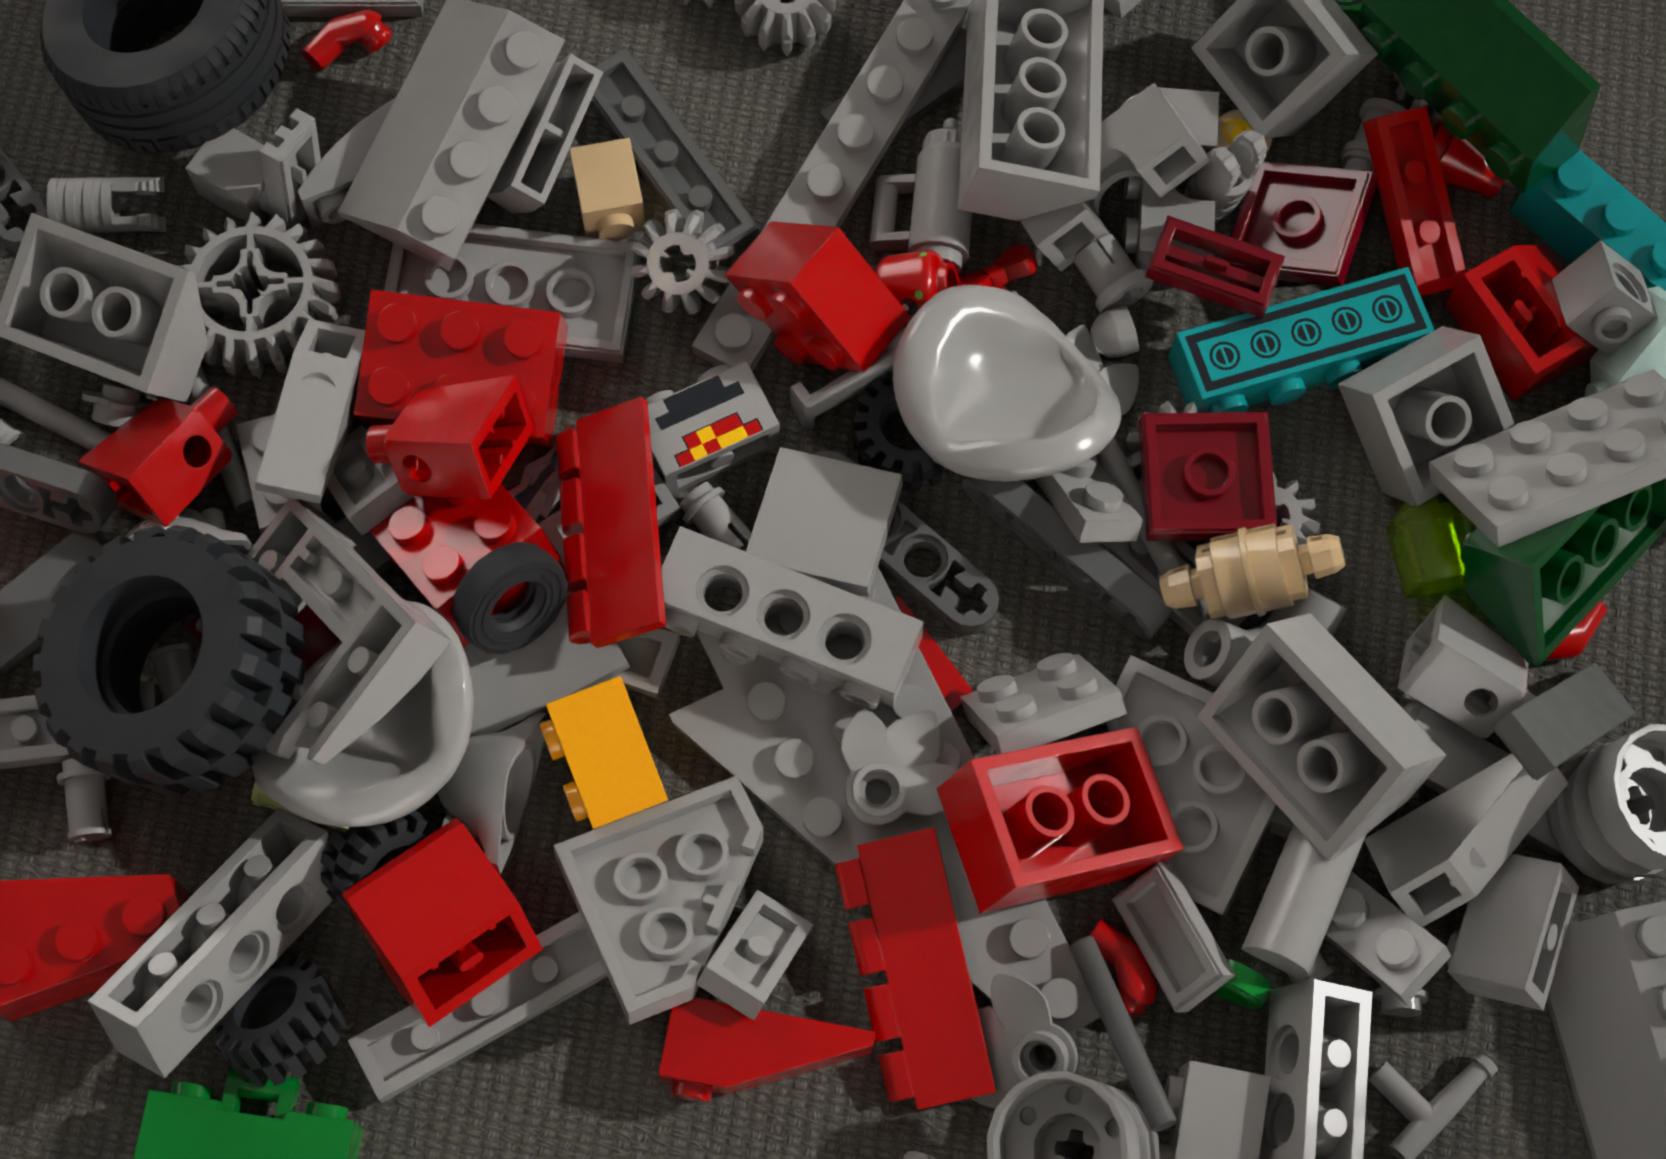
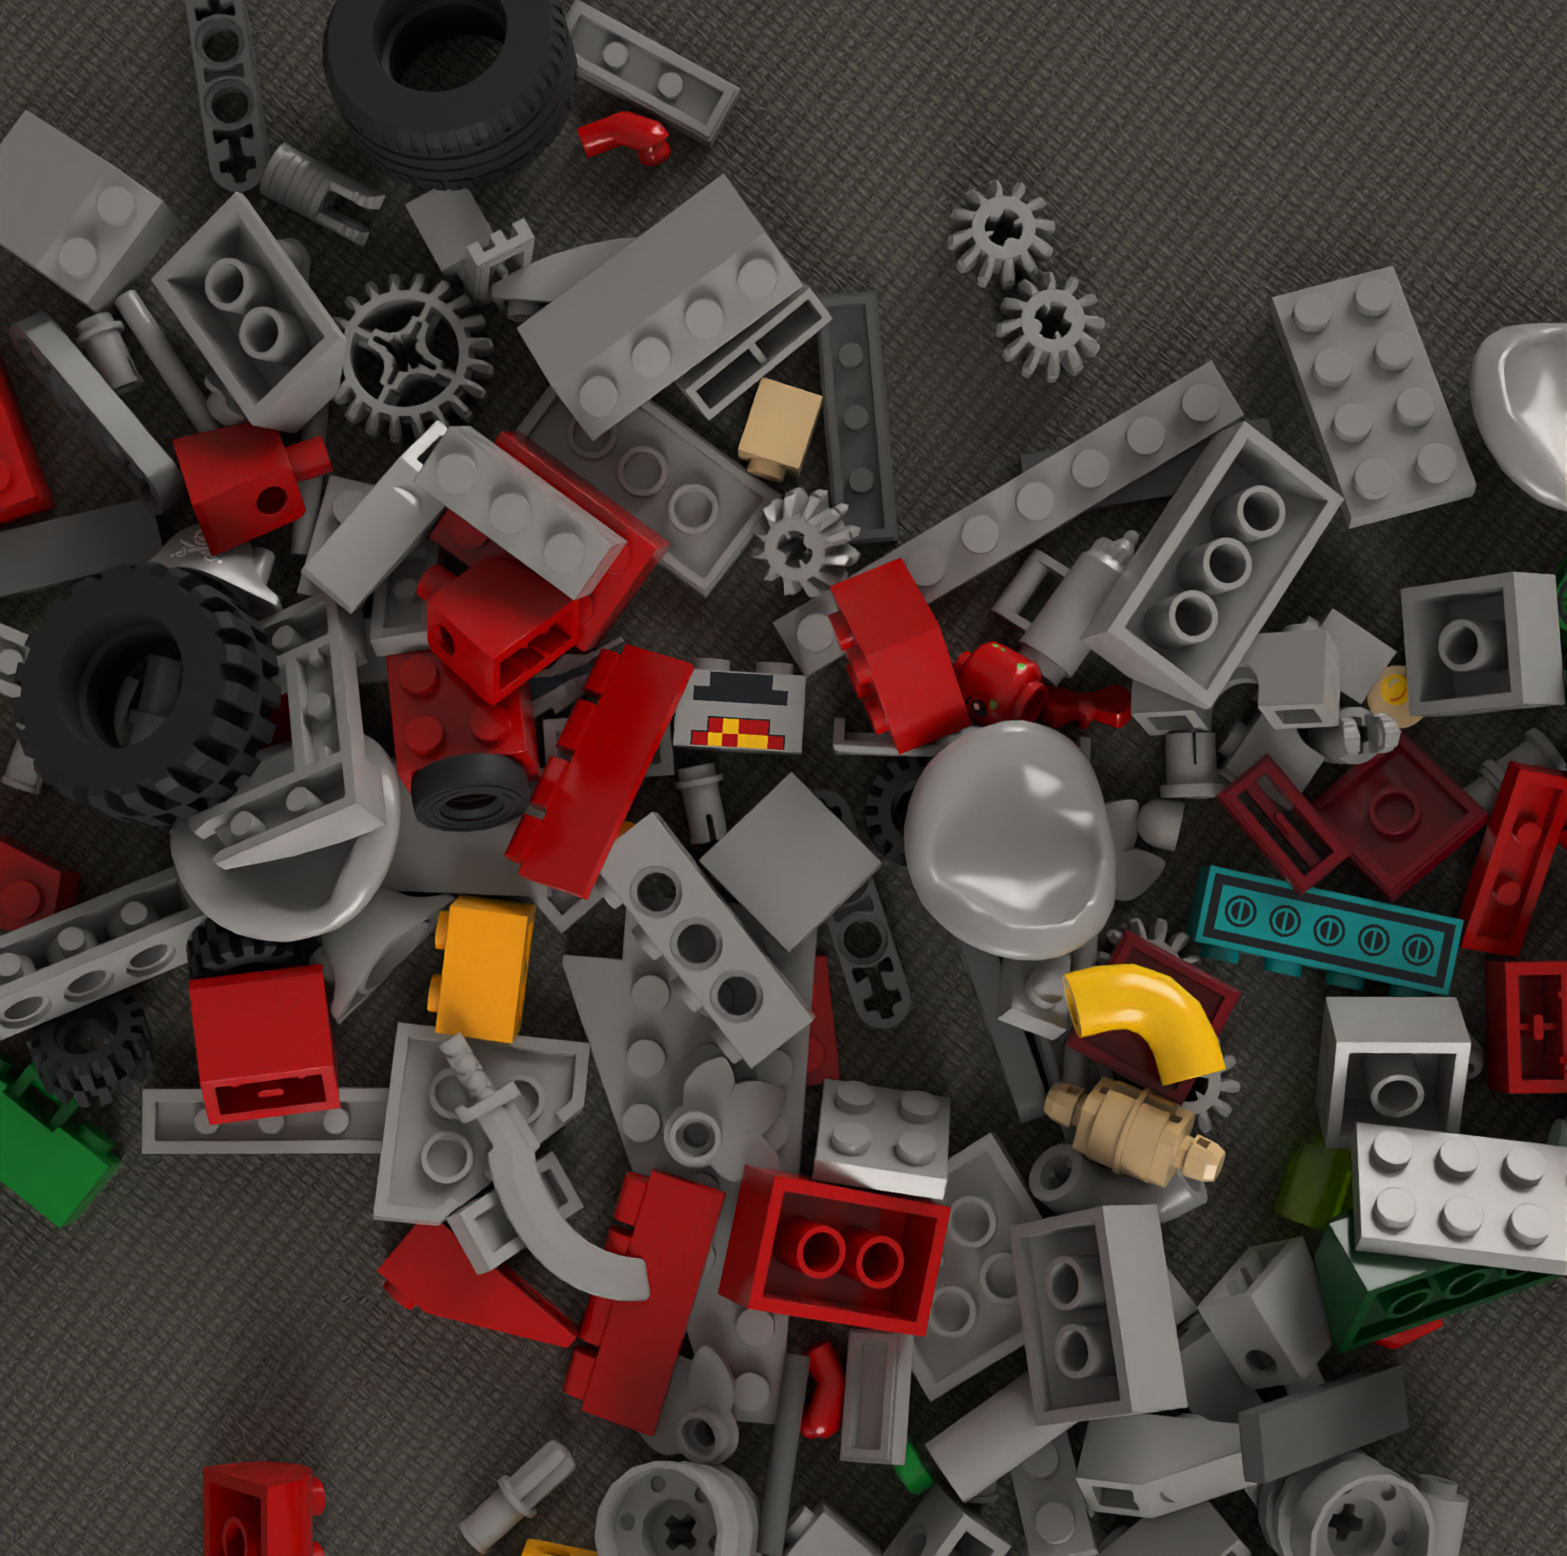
camera: 30 degrees right, 15 degrees up
(424, 330) = (519, 511): none -> light grey brick
(754, 923) = (525, 1194): none -> light grey sword
(1203, 453) = (1150, 1005): none -> yellow cylinder

